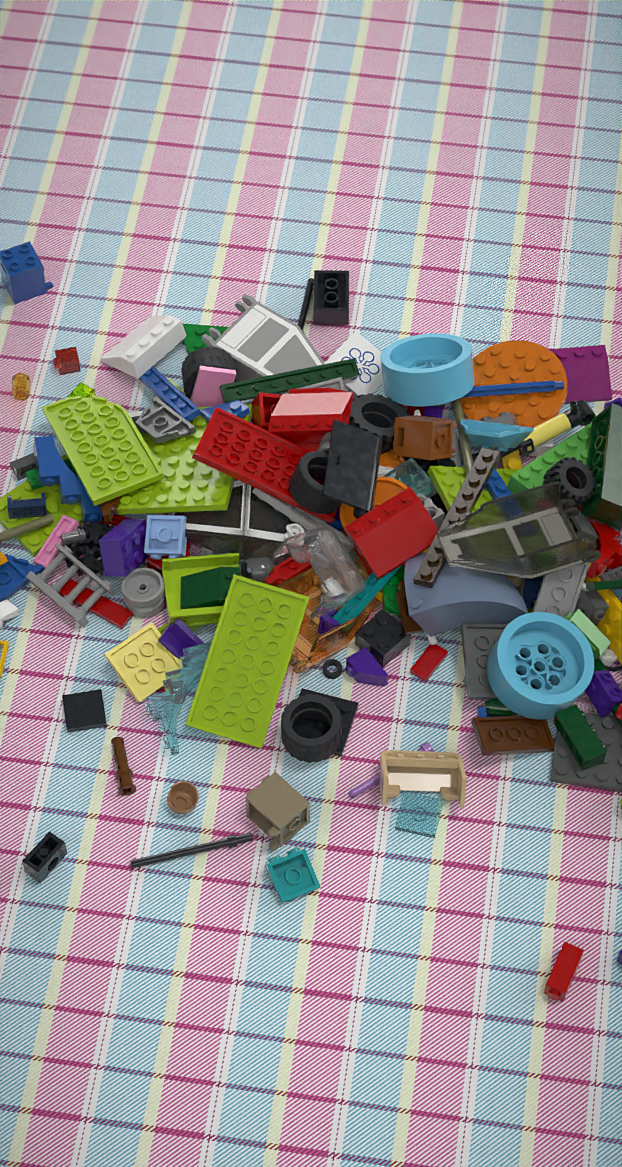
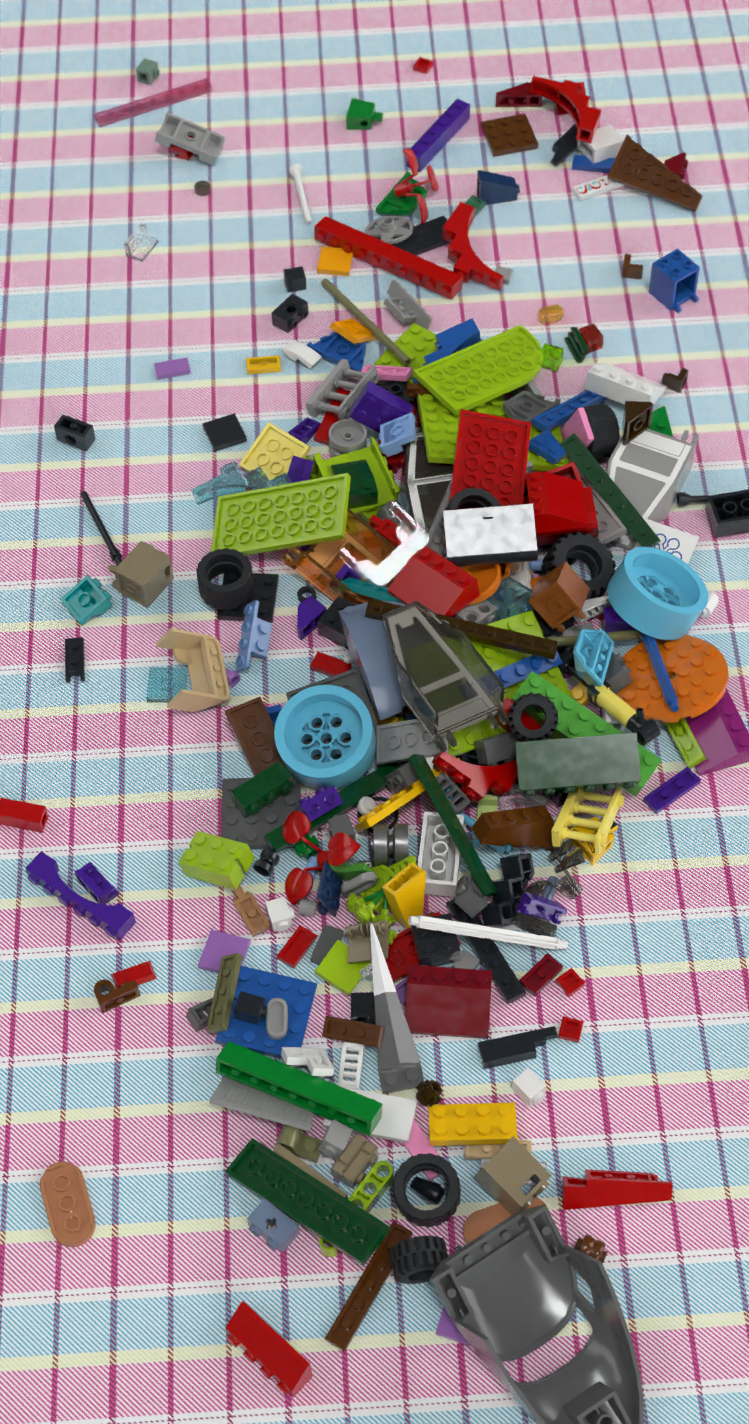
camera: 80 degrees right, 0 degrees up
(27, 507) = (415, 342): dark blue hinge -> none
(73, 537) = (387, 377): dark grey pin -> none
(84, 376) = (578, 346): none -> dark green tile
(119, 635) = (303, 432): none -> dark purple slope
(123, 773) = (165, 469): reddish brown pin -> none
(147, 308) = (675, 382): none -> dark brown panel
(182, 797) = (147, 511): medium nougat hair -> none
(226, 333) = (635, 419): none -> dark brown slope
(293, 528) = (423, 516): white plate -> none
(365, 900) = (74, 658): none -> black hinge
(382, 722) = (254, 637): none -> medium blue bracket
(591, 395) = (686, 742): none -> lime tile
(595, 637) = (374, 772): bright green window -> none

